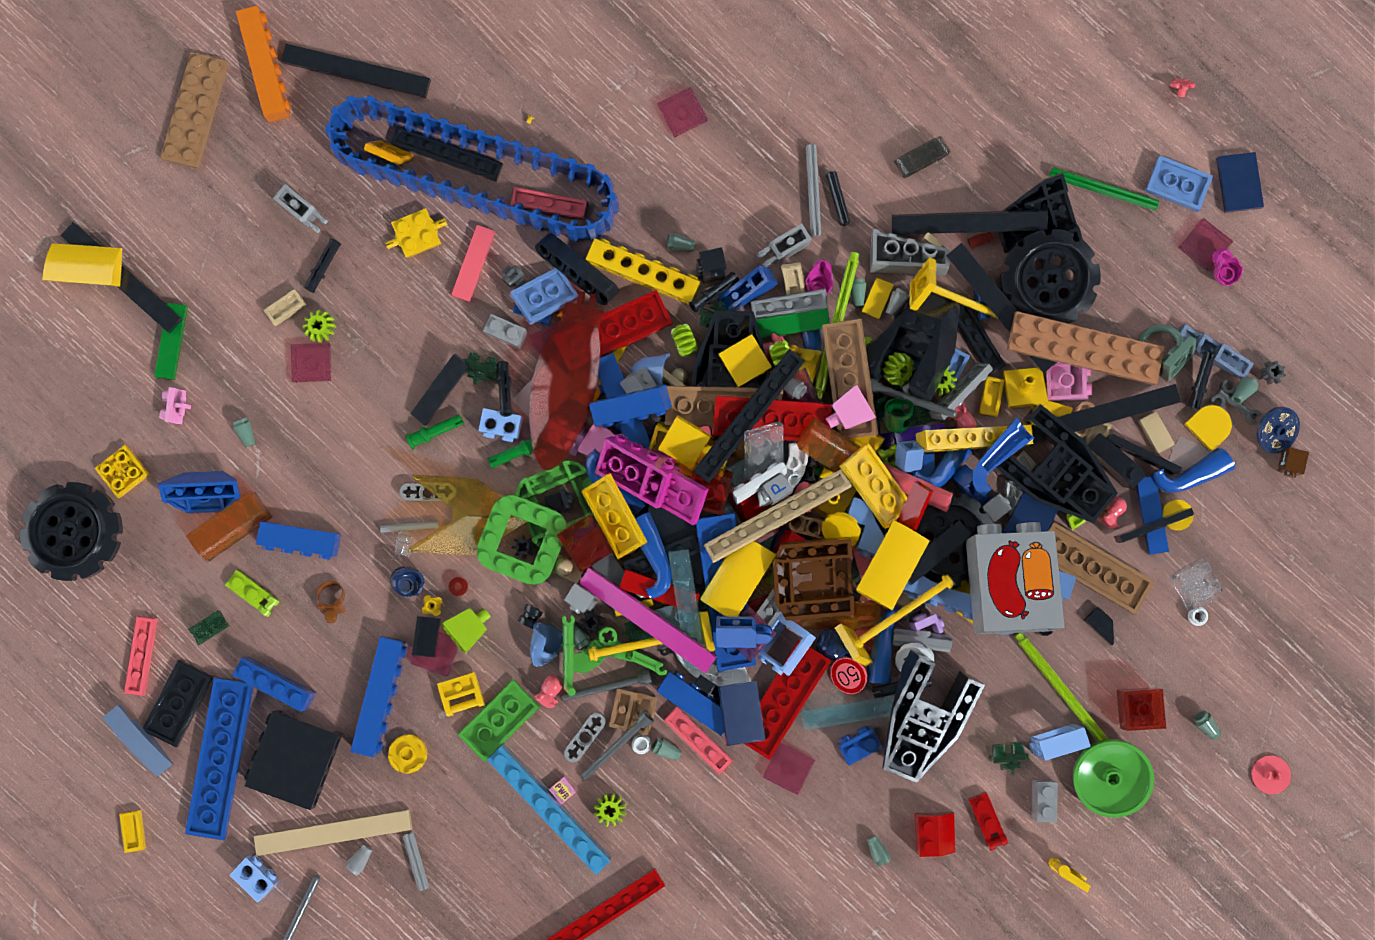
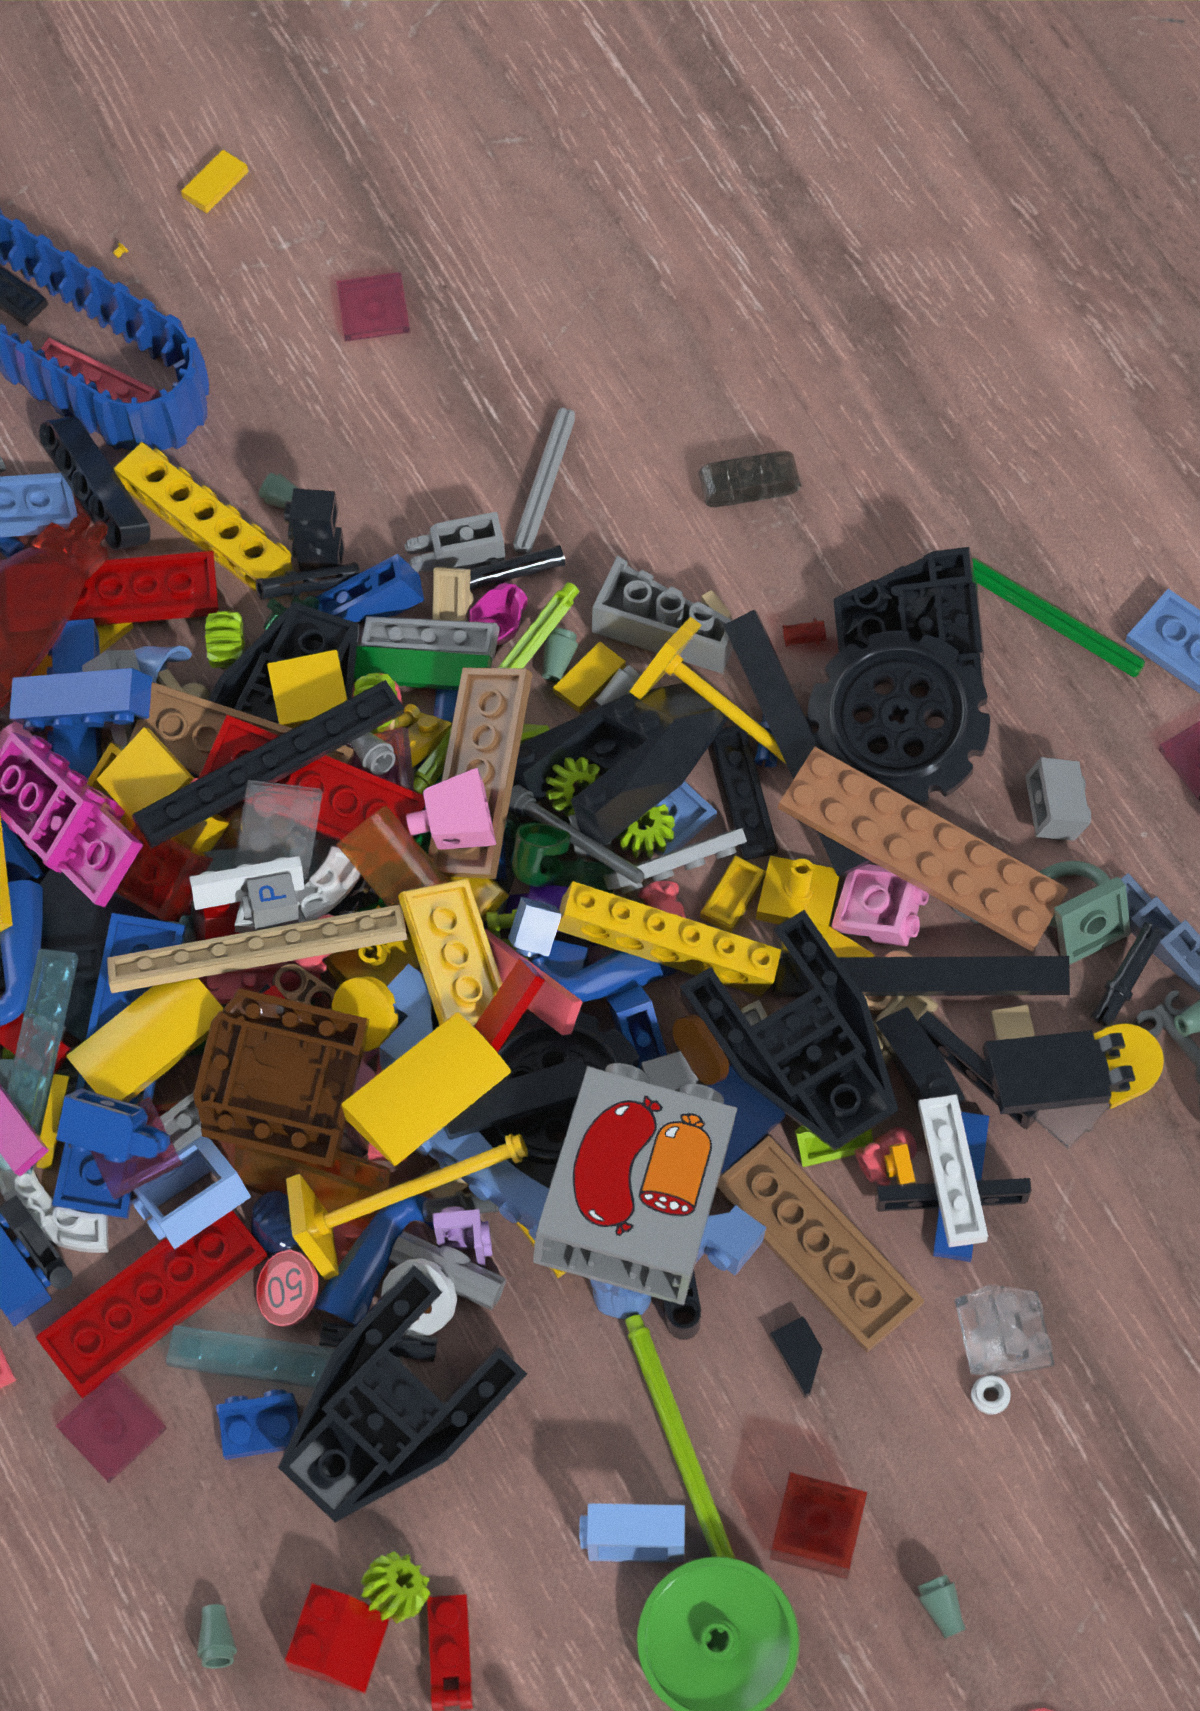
camera: 20 degrees right, 20 degrees down
(564, 59) = (214, 181): none -> yellow tile
(741, 713) = (59, 1286): dark blue tile -> none
(823, 243) = (552, 558): none -> black pin
(838, 198) = (582, 504): black axle -> none
(955, 803) = (395, 1587): none -> lime gear
(970, 222) = (790, 593): black tile -> none
(999, 756) = (516, 1532): clear green hips -> none
(1006, 445) = (713, 955): blue animal -> none
(1010, 492) = (700, 1049): none -> reddish brown tile
(1044, 800) = (571, 1642): light grey brick -> none
(1126, 519) = (899, 1163): none -> light orange plate
(1142, 297) = (1058, 799): none -> light grey brick
(1154, 517) = (953, 1171): none -> white piece
(1174, 506) = (1013, 1216): yellow piece -> none
(1183, 446) = (1055, 1070): none -> black tile
(1205, 470) = (1092, 1137): blue animal -> none

